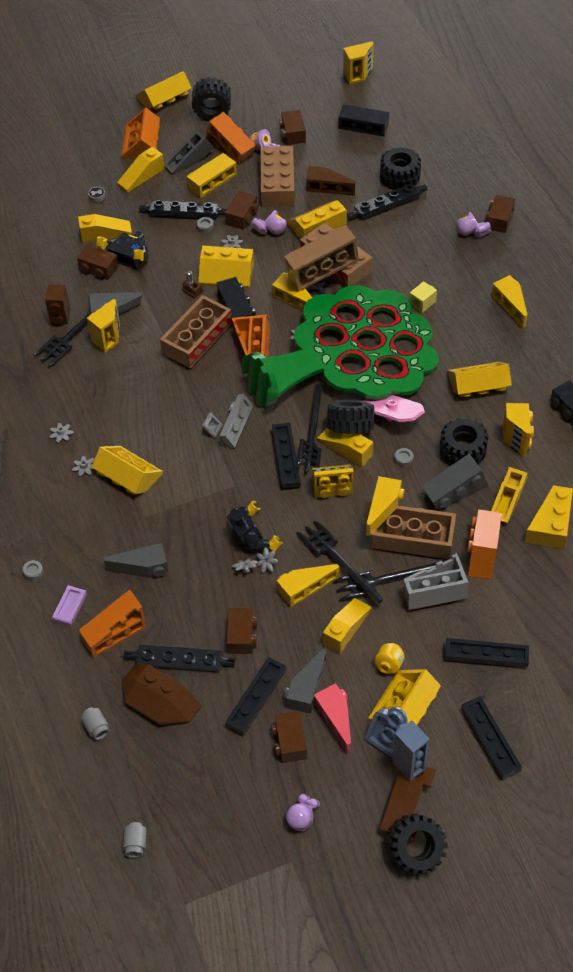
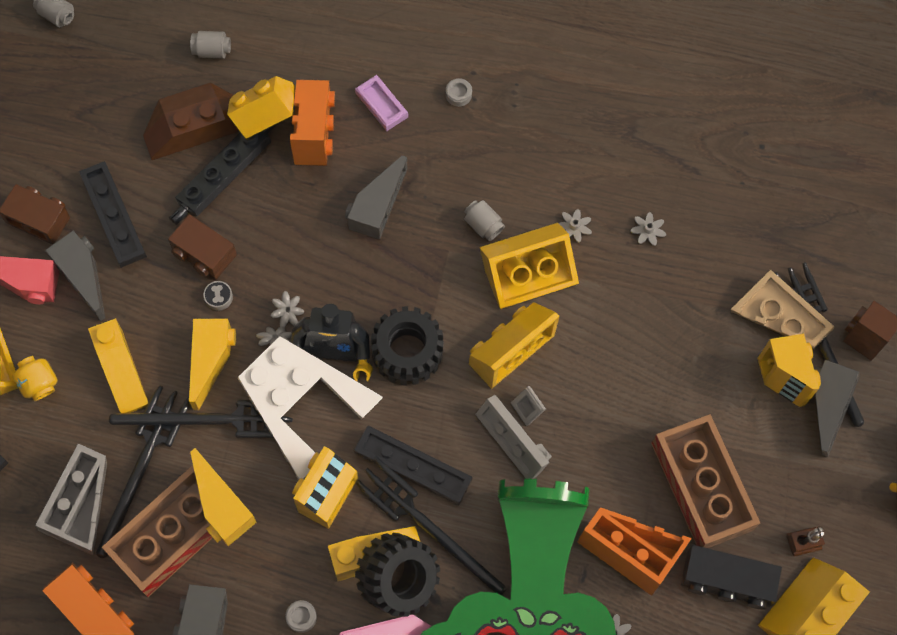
camera: 120 degrees right, 15 degrees up
(71, 348) = (782, 310): none -> tan wing
(114, 505) = (484, 220): none -> light grey brick
(123, 648) = (262, 105): none -> yellow slope
(182, 443) = (513, 343): none -> yellow slope
(218, 480) = (403, 324): none -> black tyre
(263, 607) = (218, 295): none -> tile
(292, 534) = (281, 379): none -> white wing

